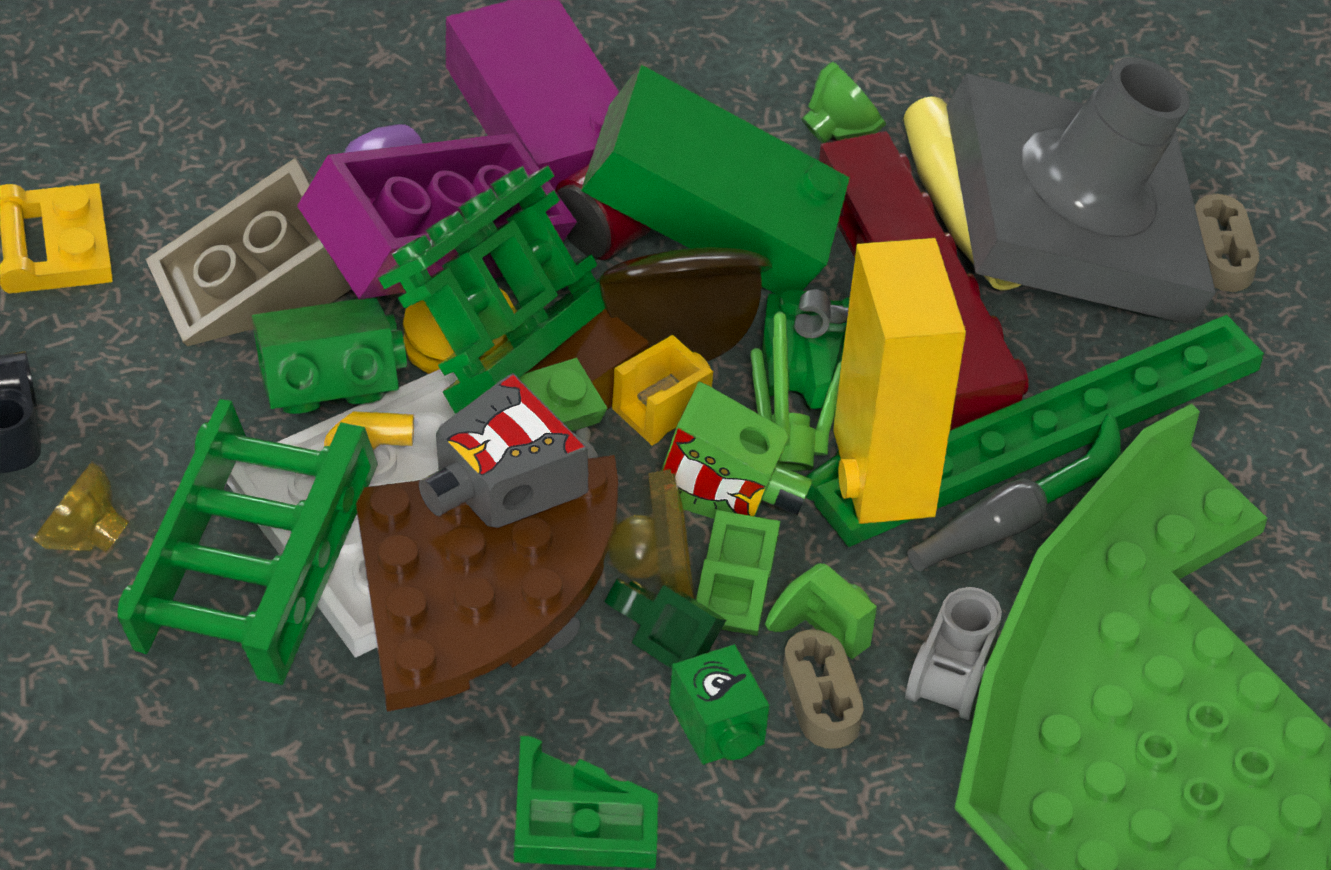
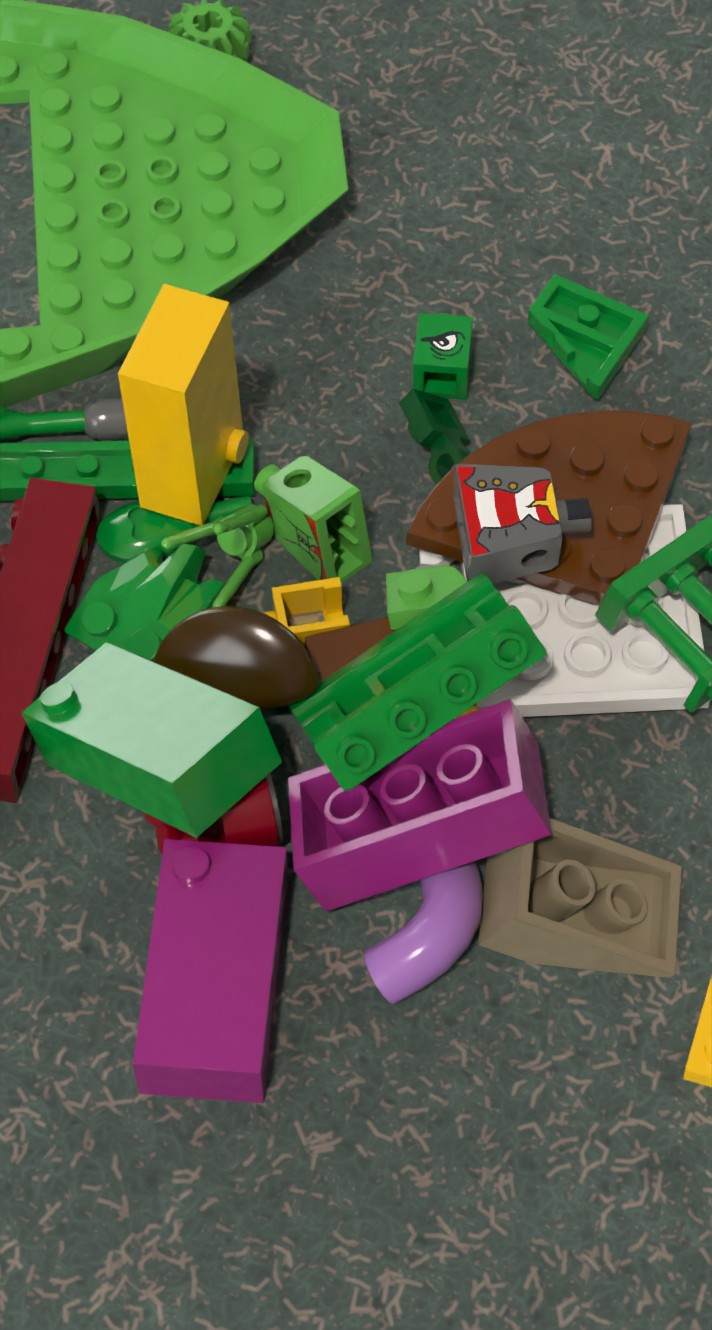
camera: 145 degrees left, 10 degrees up
(328, 354) = (587, 737): green brick -> none
(380, 427) = (591, 657): yellow arm -> none
(656, 543) = (400, 490): clear yellow tile -> none
(738, 569) = (366, 449): bright green slope -> none
(809, 691) = (364, 355): dark tan beam -> none
(817, 325) = (151, 601): dark grey hand -> none
(828, 606) = (317, 405): bright green plate -> none
(957, 651) = (257, 317): light grey piece -> none

